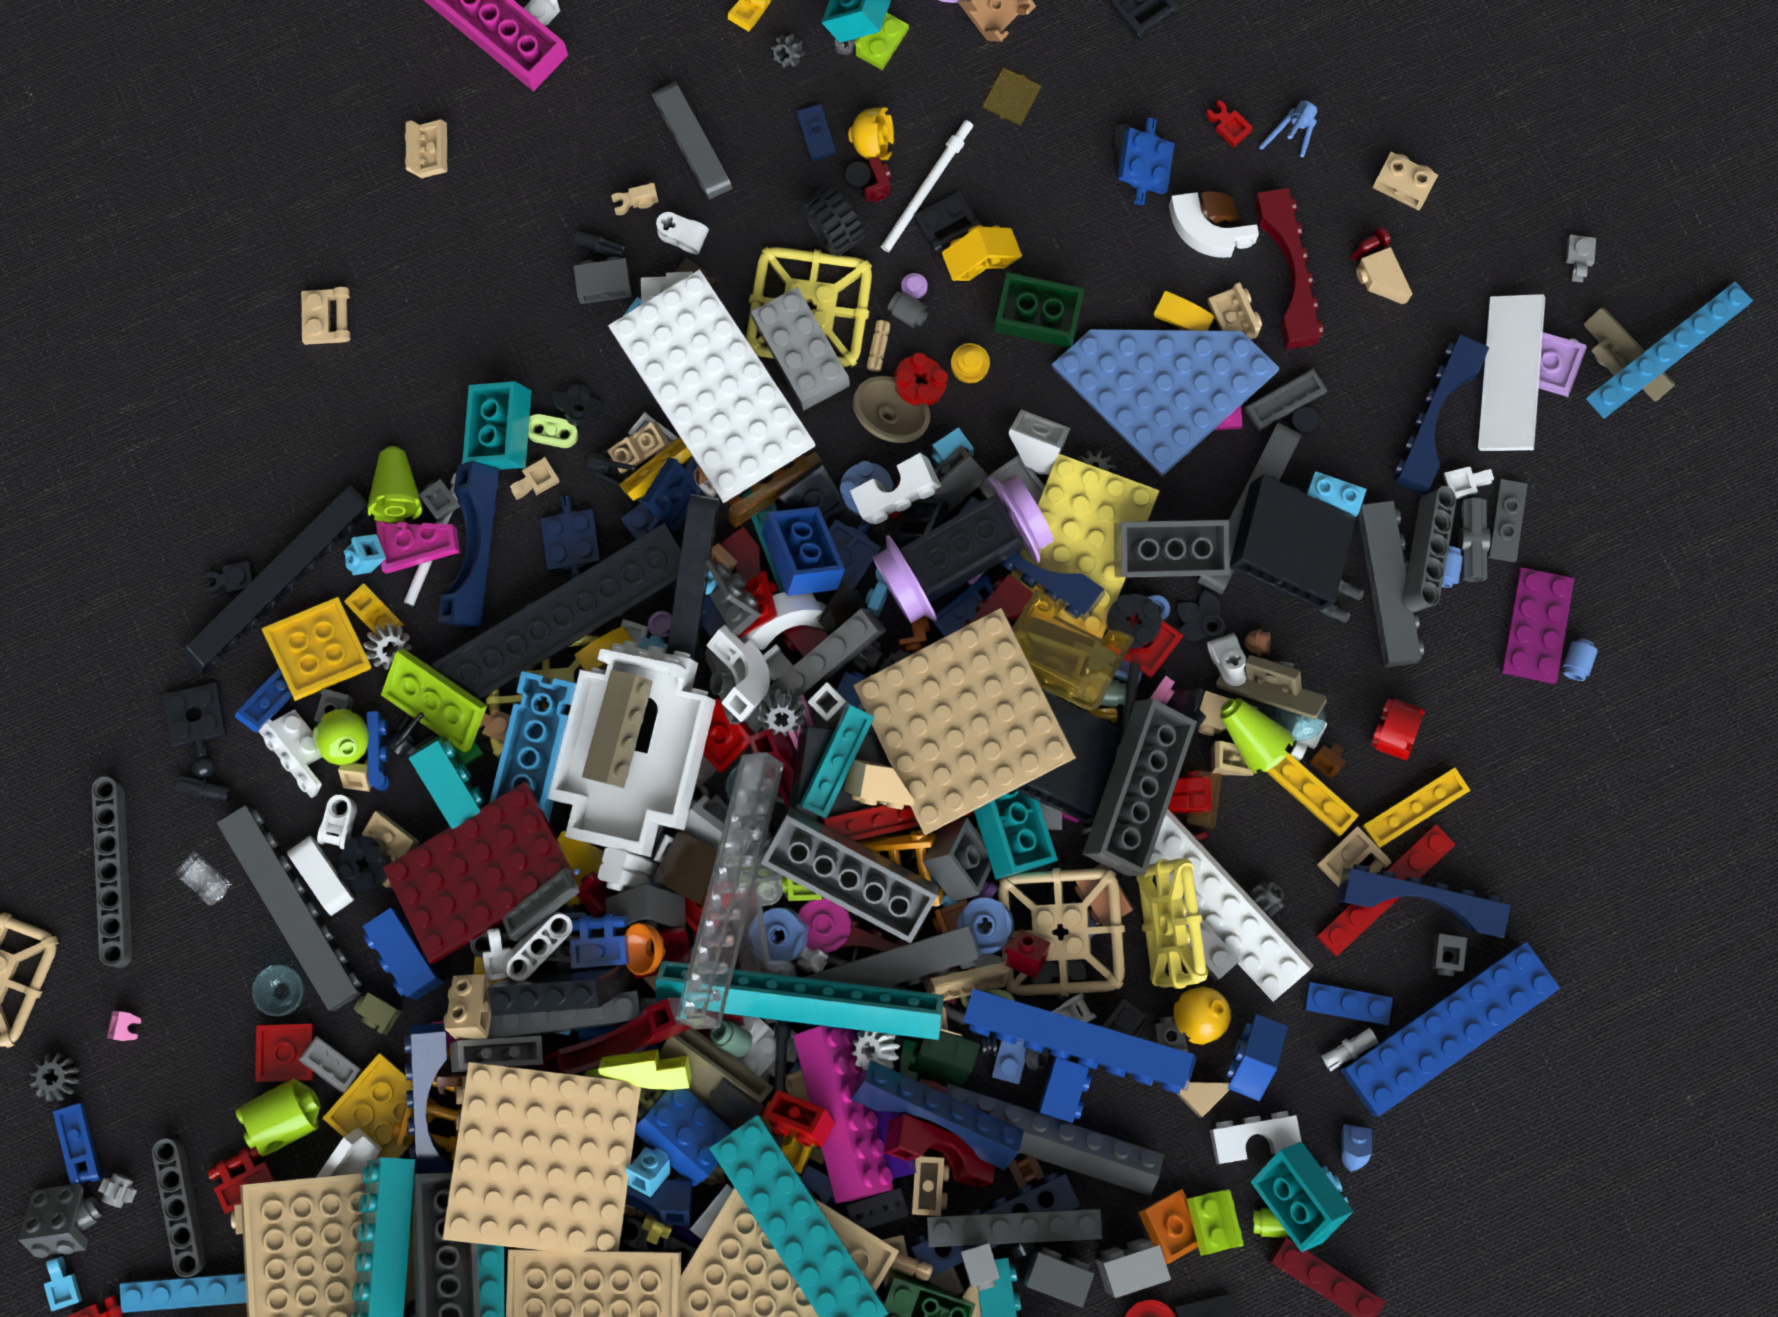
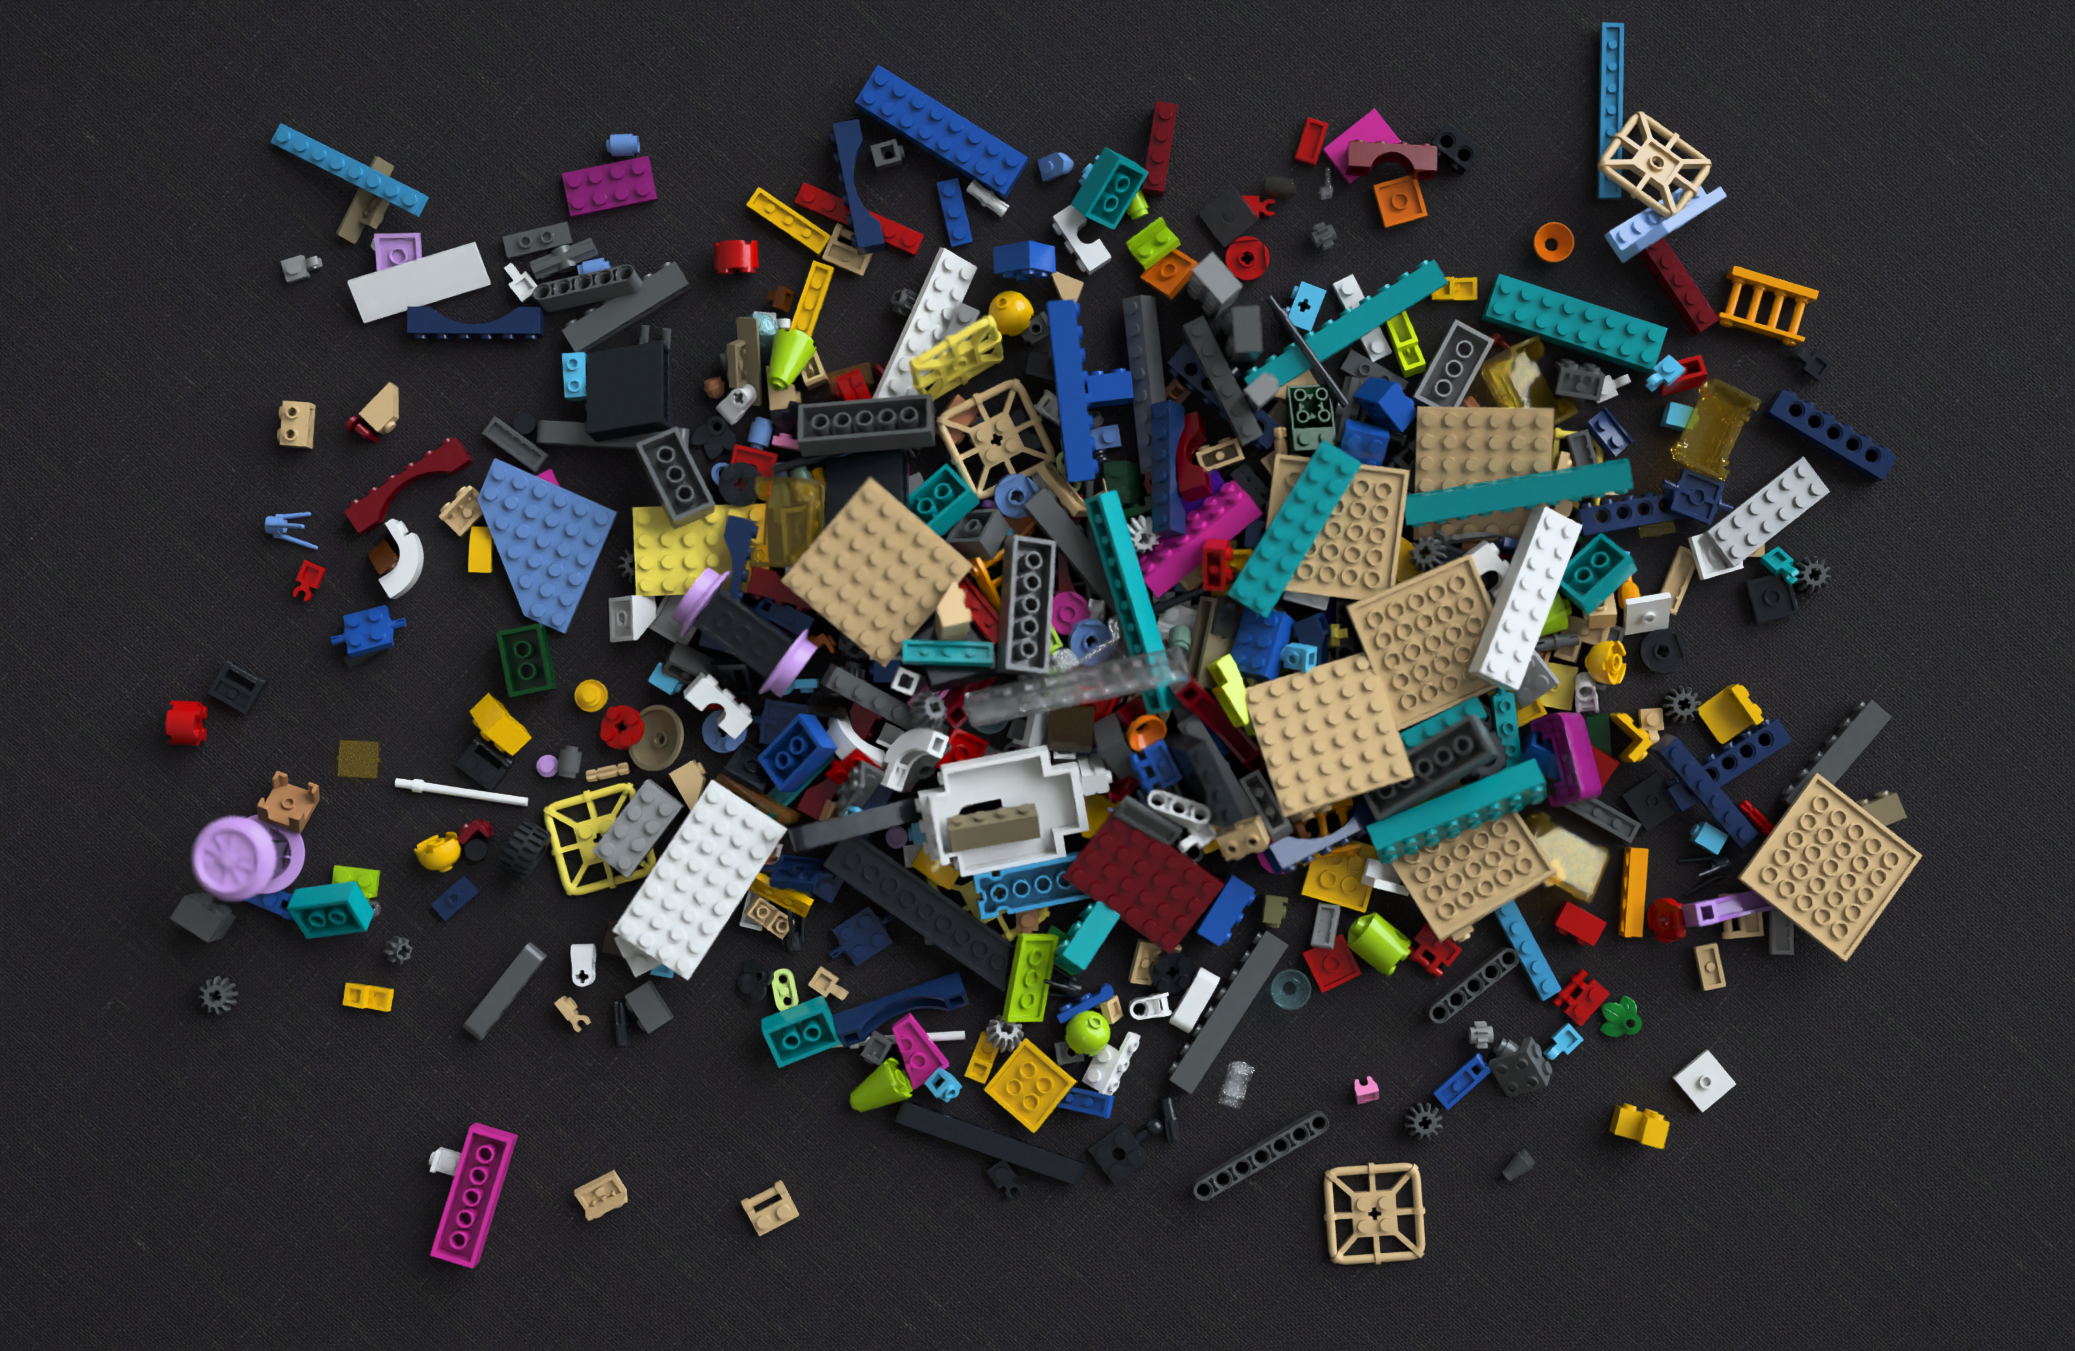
camera: 120 degrees left, 10 degrees up
(826, 426) = (690, 782): none -> tan slope
(1027, 953) = (1023, 456): dark red brick -> none
(1183, 670) = (760, 433): none -> medium blue brick

